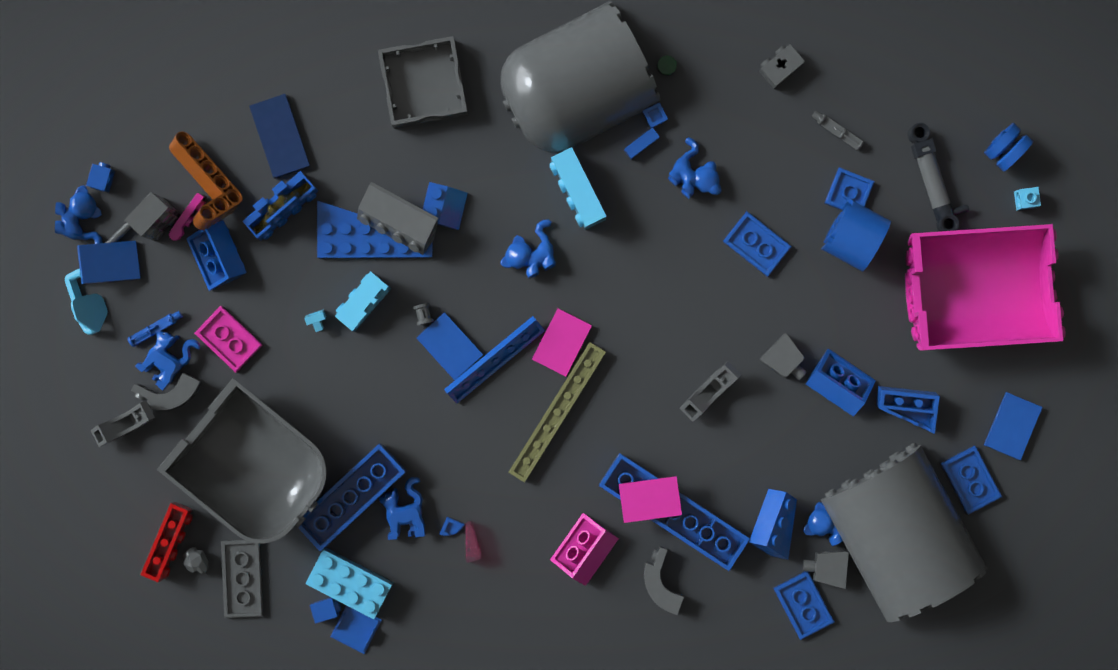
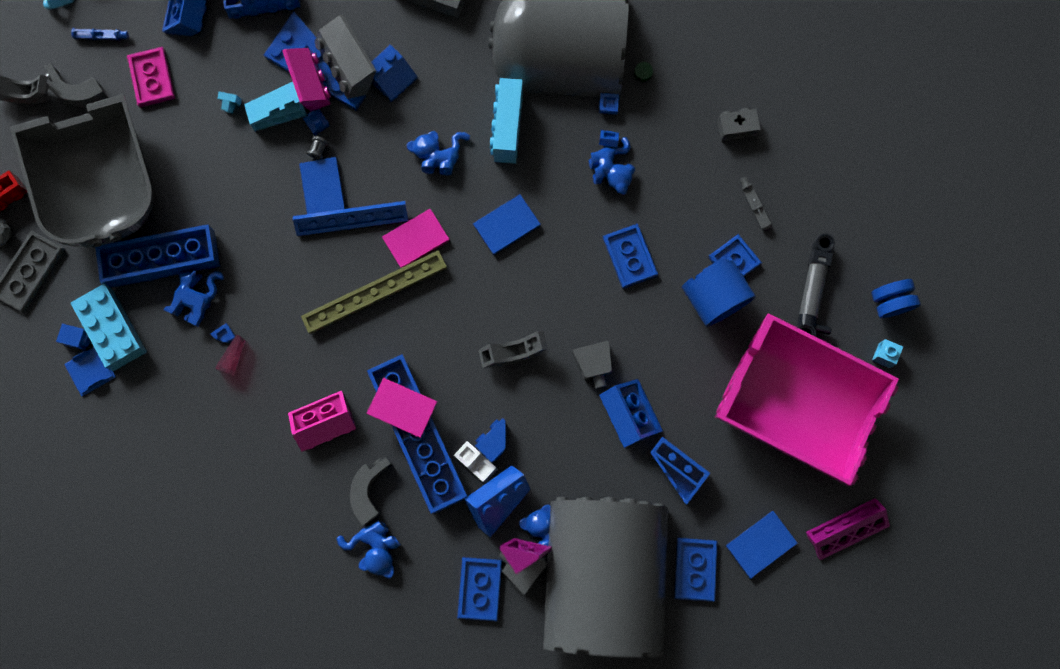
camera: 30 degrees right, 10 degrees down
(164, 361) = (87, 60): blue animal -> none
(377, 258) = (307, 78): none -> dark pink slope
(405, 290) = (316, 121): none -> blue tile
(633, 281) = (506, 224): none -> blue tile
(641, 143) = (583, 119): blue piece -> none
(675, 148) = (609, 139): none -> blue plate
(705, 633) = (377, 559): none -> blue animal
(735, 503) = (475, 462): none -> white slope
(741, 477) = (494, 442): none -> blue slope
(828, 557) = (523, 553): none -> magenta slope
(1075, 366) = (848, 524): none -> magenta fence

